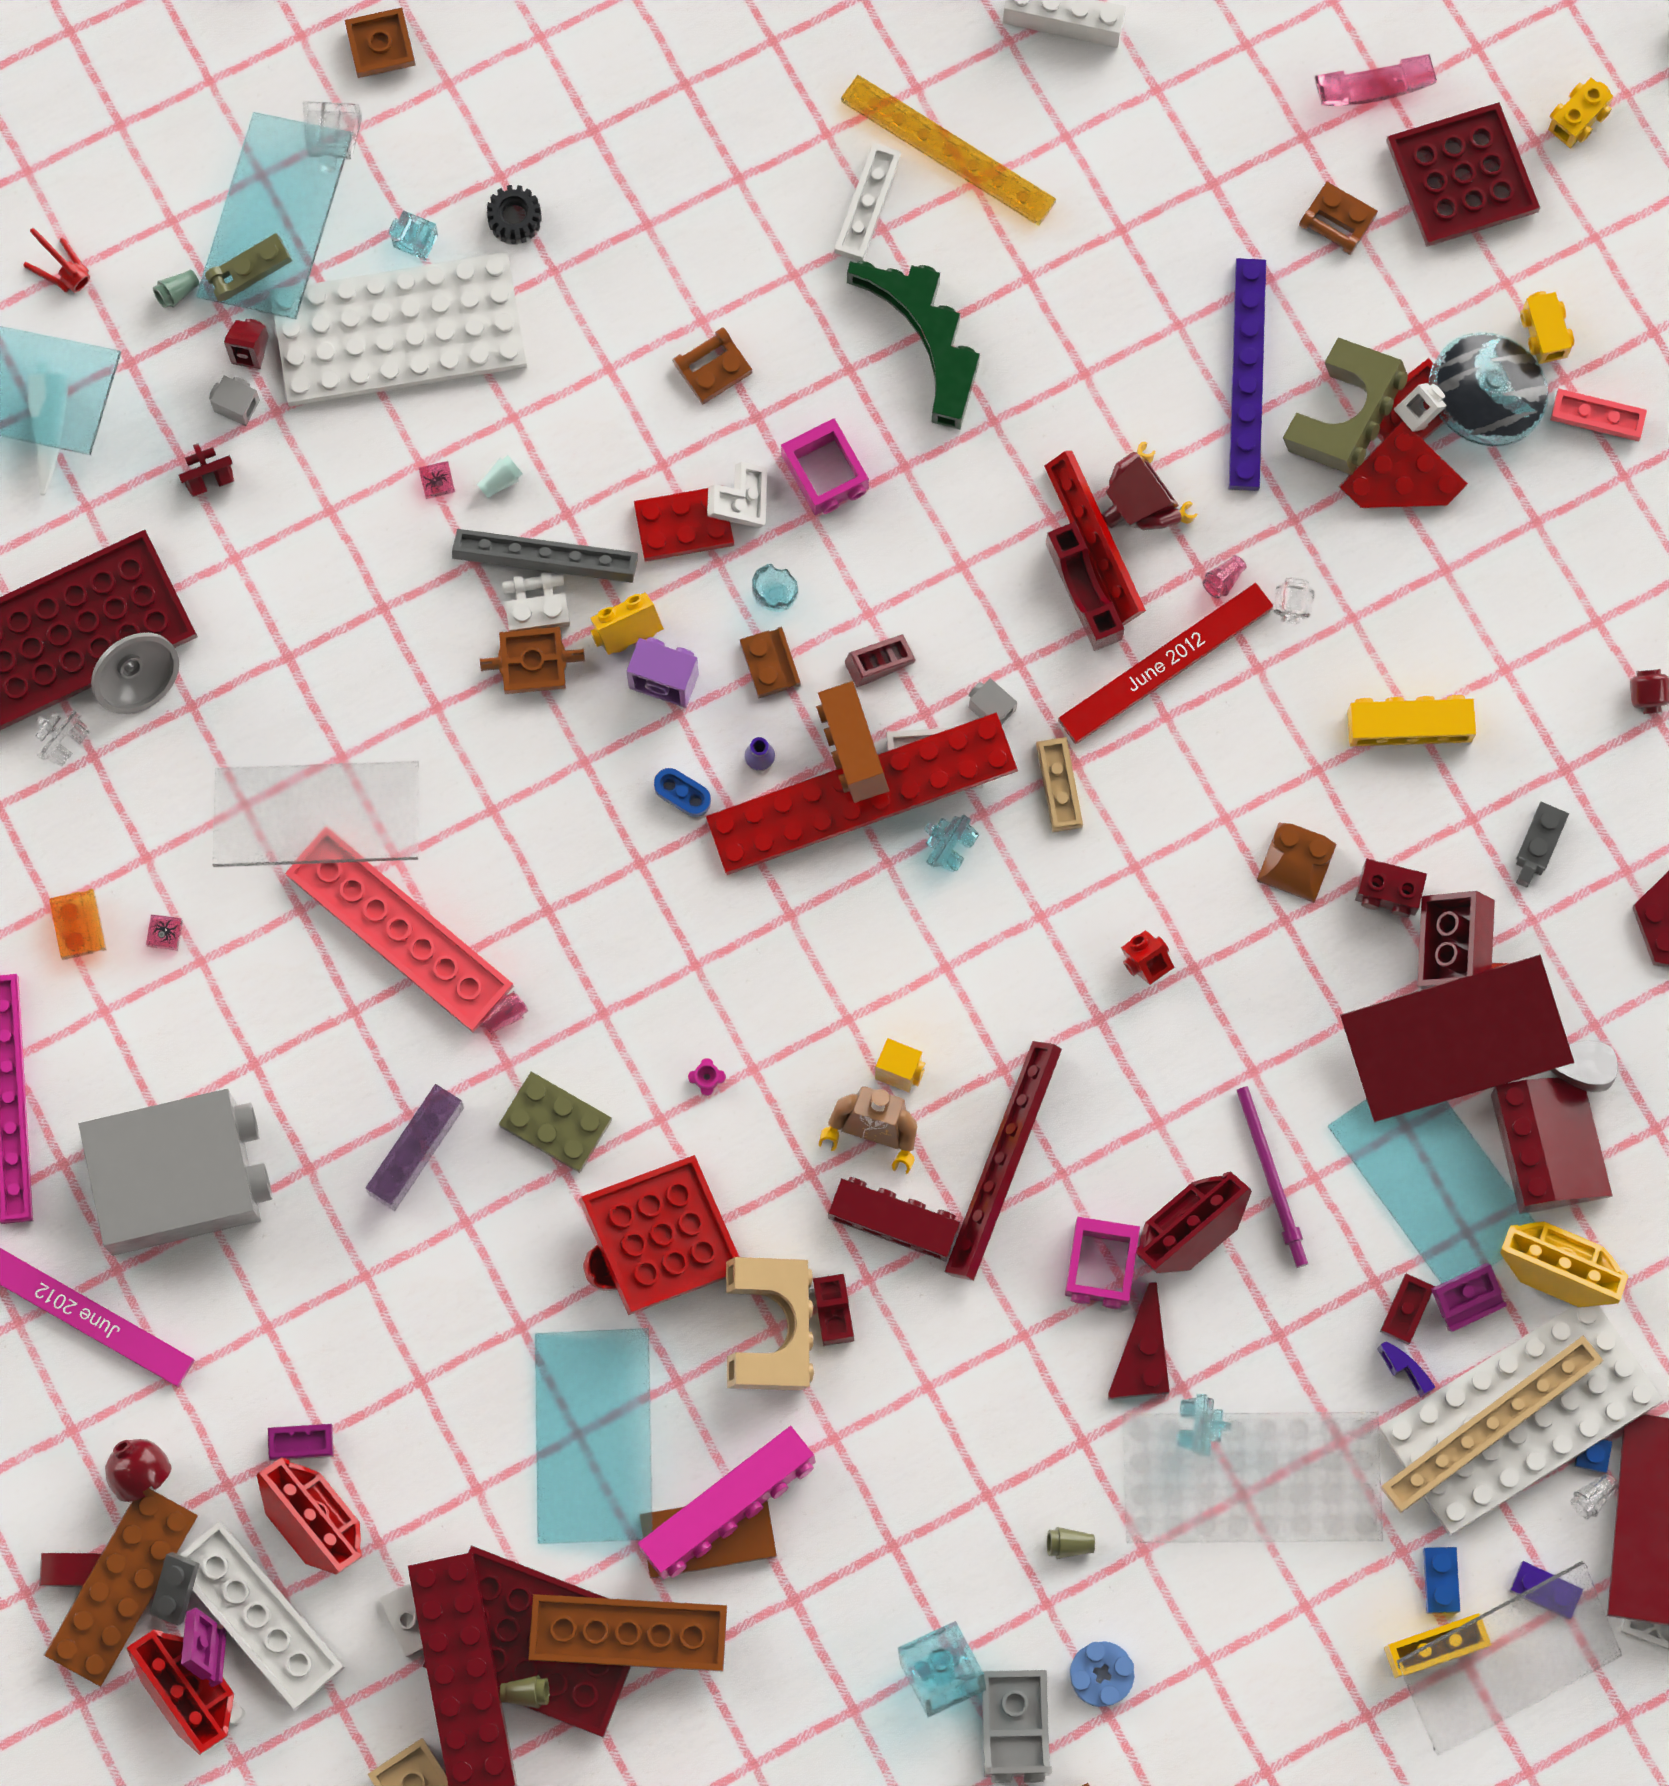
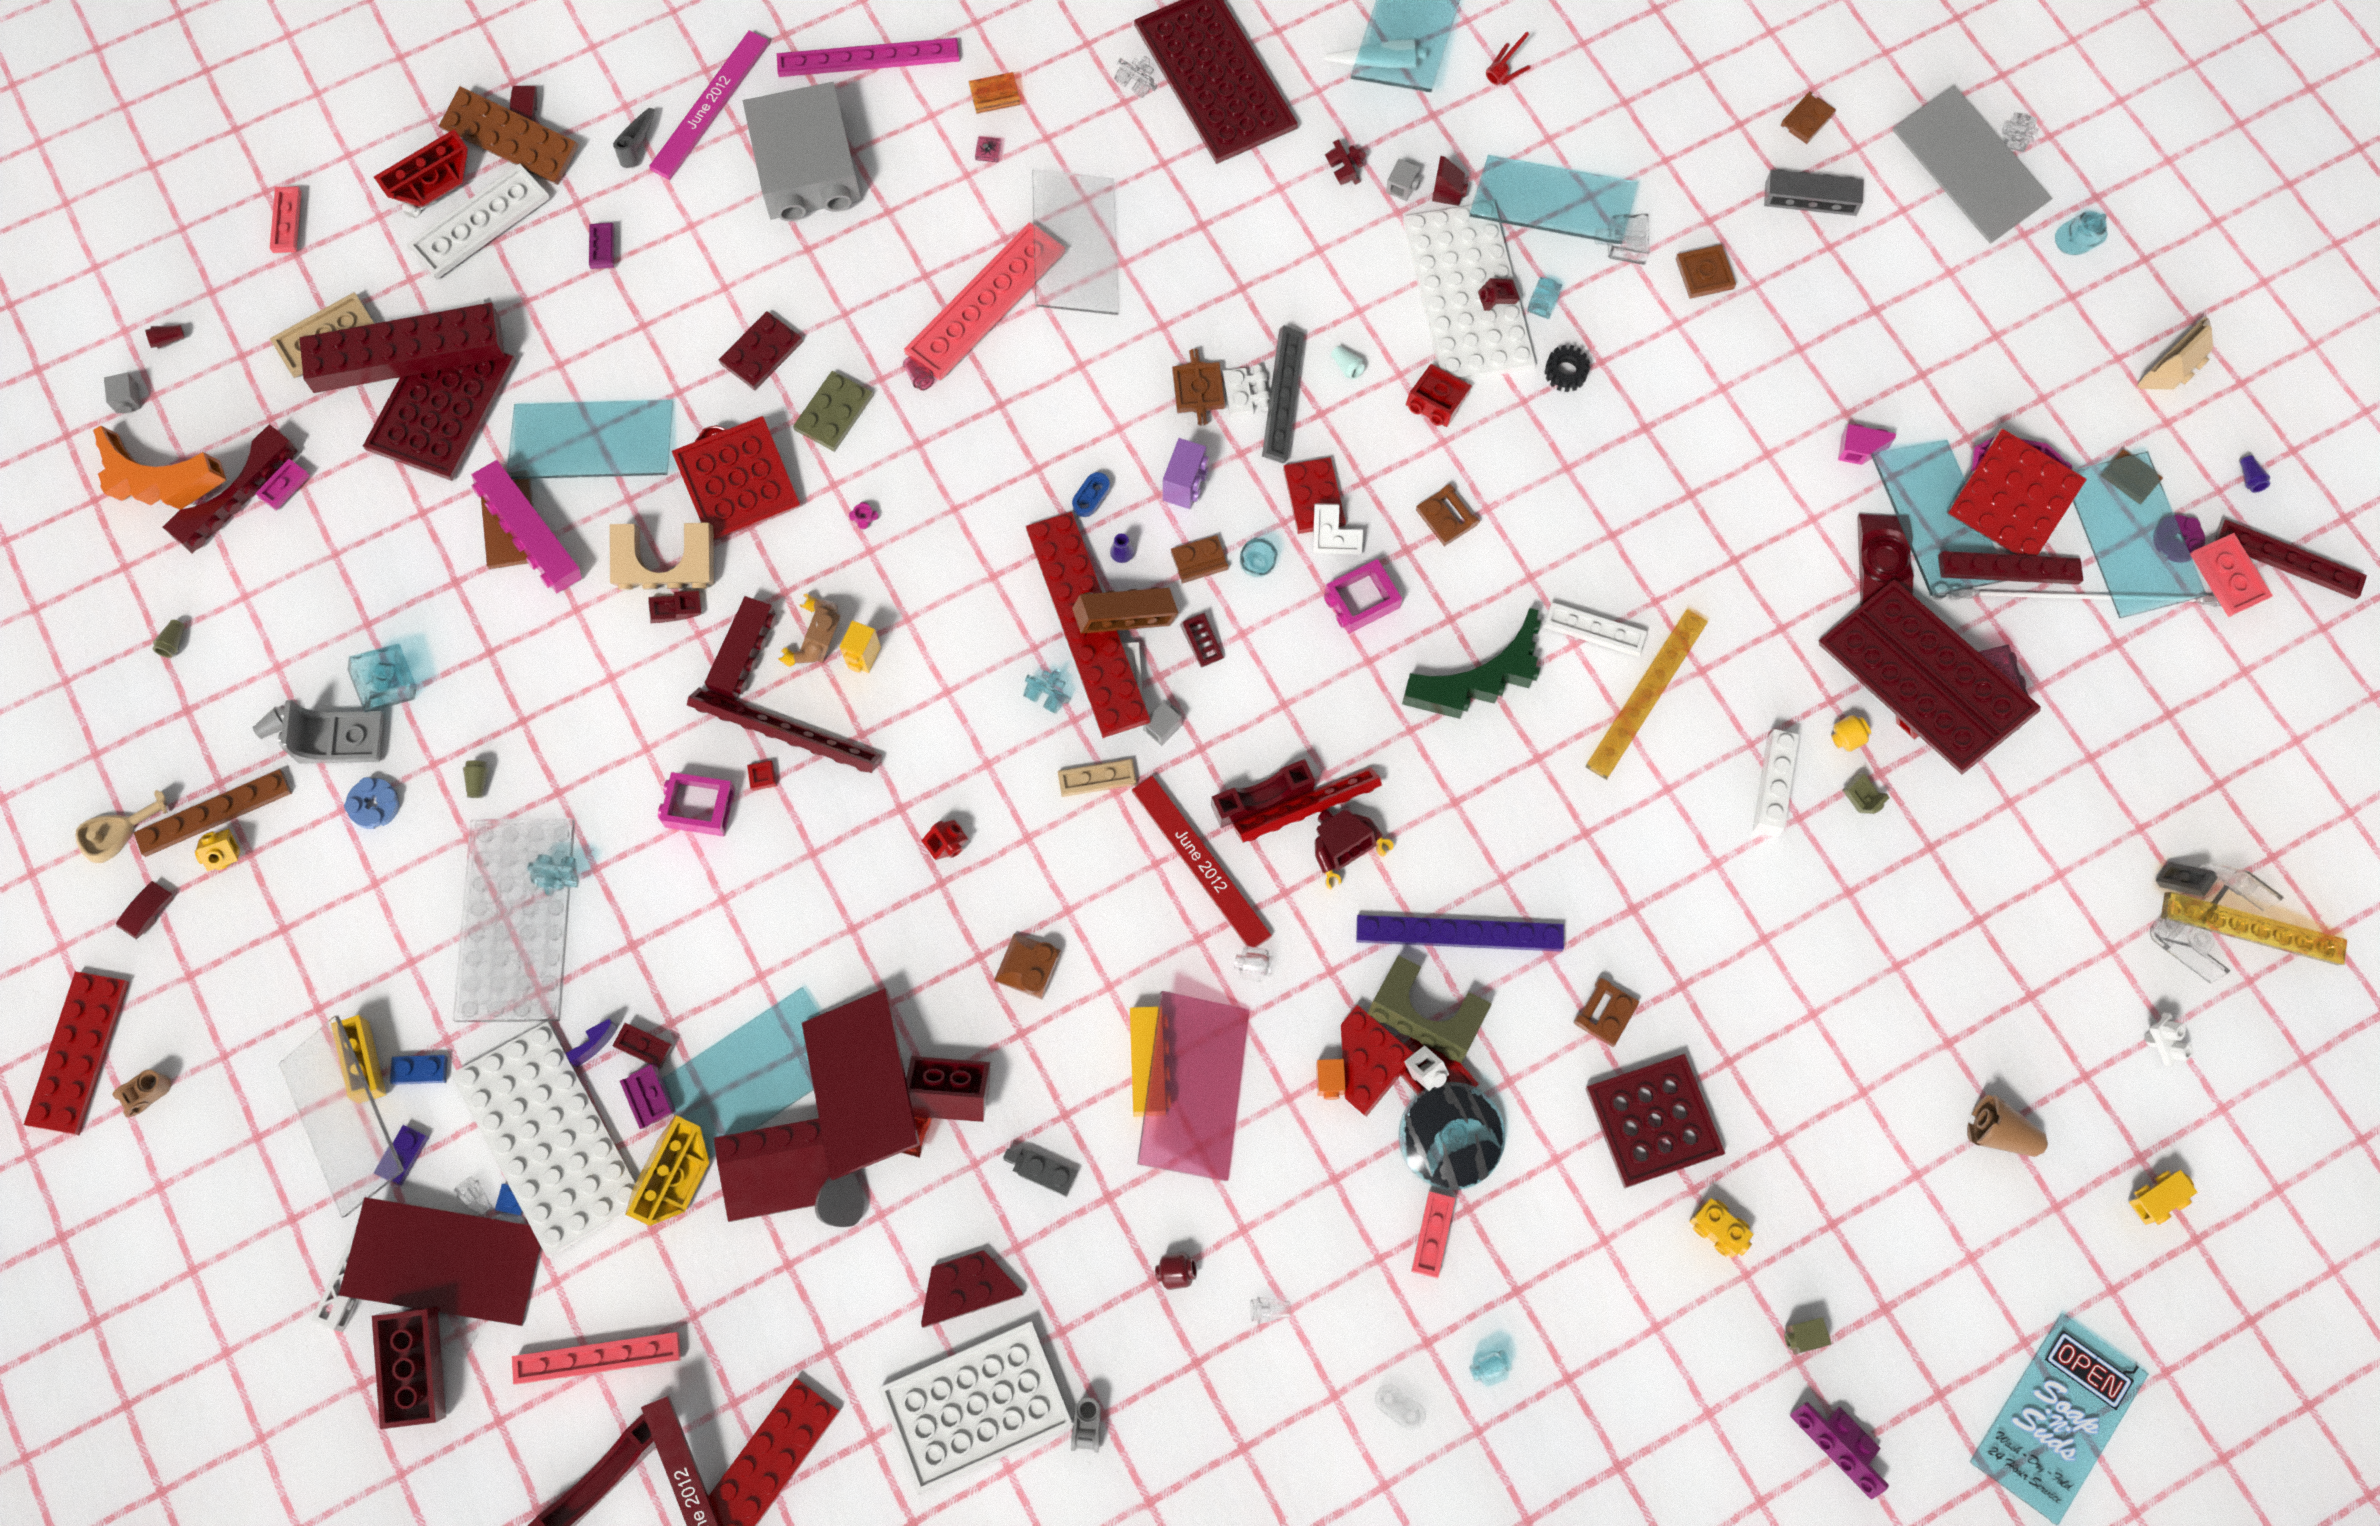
camera: 90 degrees right, 5 degrees down
(134, 1407) = (632, 138): none -> dark grey piece
(135, 673) = (1180, 113): light grey dish -> none
(135, 1468) = (585, 135): dark red cylinder -> none
(174, 1588) = (500, 166): dark grey plate -> none
(175, 288) = (1491, 138): sand green cone -> none
(203, 1647) = (452, 180): magenta plate -> none
(248, 267) = (1509, 182): olive plate -> none
(310, 1516) = (545, 251): red wedge -> none
(414, 287) = (1498, 292): none -> dark red bracket
(415, 1147) = (815, 312): clear purple brick -> none
(436, 479) = (1345, 320): clear pink tile -> none
(464, 1220) = (760, 350): none -> dark red plate
(526, 1692) = (397, 390): olive cone -> none
(552, 368) = (1437, 395): none -> red plate
(625, 623) = (1226, 450): yellow brick -> none
(628, 1633) = (433, 458): dark orange plate -> none
(1060, 1188) = (761, 775): none -> red tile
(1143, 1362) = (619, 838): dark red wing -> none
(1193, 1223) = (719, 870): dark red wedge -> none
(1222, 578) = (1275, 908): clear pink cone -> none
(1291, 1234) = (711, 954): magenta bar -> none
(1376, 84) = (1734, 1044): clear pink slope -> none
(1390, 887) = (1000, 1038): dark red brick -> none
(1425, 519) = (1330, 1078): none -> orange brick
(1440, 668) = (1193, 1086): none -> clear pink piece
(1491, 1424) = (534, 1107): tan plate -> none
(1546, 326) = (1519, 1186): yellow brick -> none

